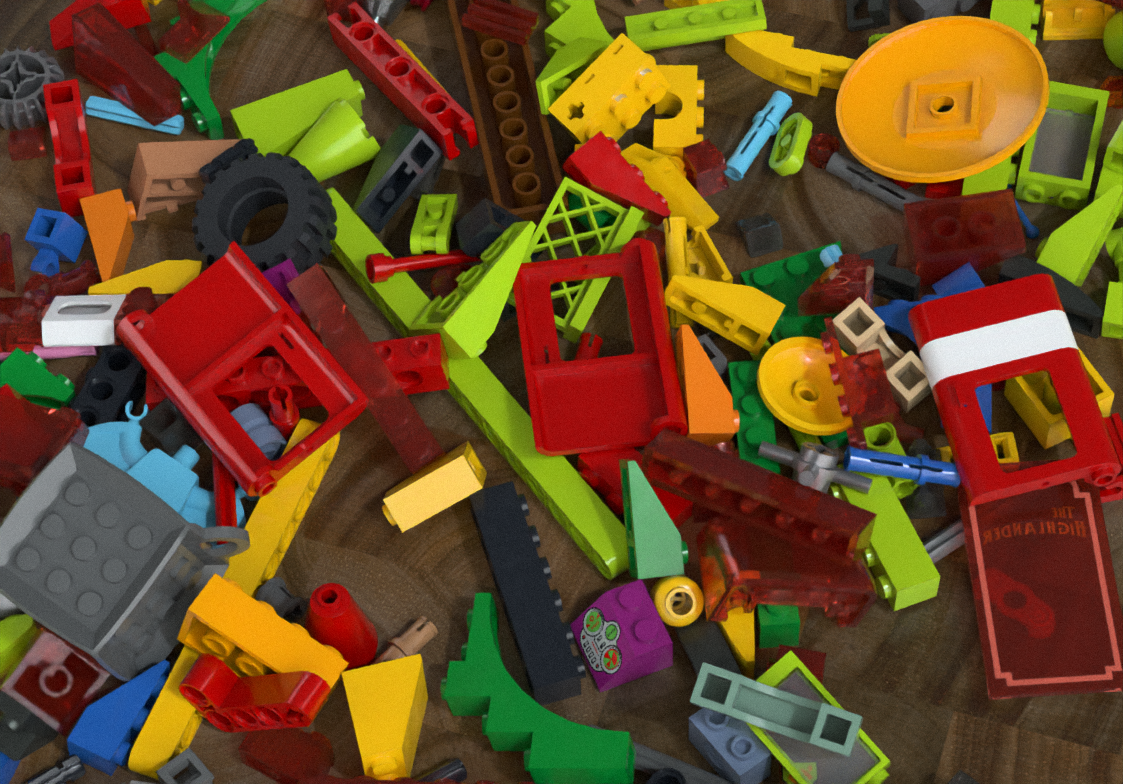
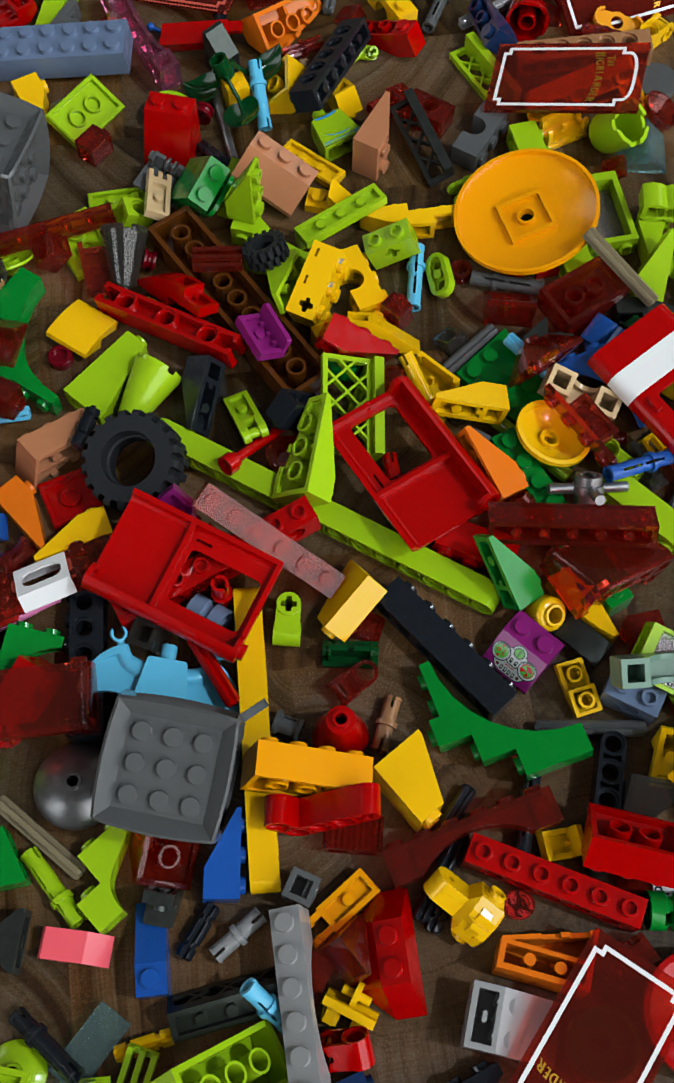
camera: 30 degrees left, 10 degrees up
(166, 238) = (67, 497): none -> red tile
(254, 76) = (60, 358): none -> dark red tile
(297, 49) = (81, 328): none -> yellow slope
(349, 482) = (287, 623): none -> lime piece
(380, 583) = (351, 683): none -> clear red piece
(405, 553) = (348, 653): none -> dark green hinge
(436, 44) = (180, 288): none -> red slope
(446, 531) = (369, 629): none -> clear red slope
(503, 128) = (264, 333): none -> magenta bracket
(566, 30) = (265, 250): none -> black tyre
(671, 709) = (577, 687): none -> yellow slope
(743, 81) = (391, 244): none -> lime brick
(775, 251) = (471, 348): none -> dark grey axle
(858, 218) = (509, 309): none -> clear red slope
(1024, 210) = (620, 267): none -> dark tan axle

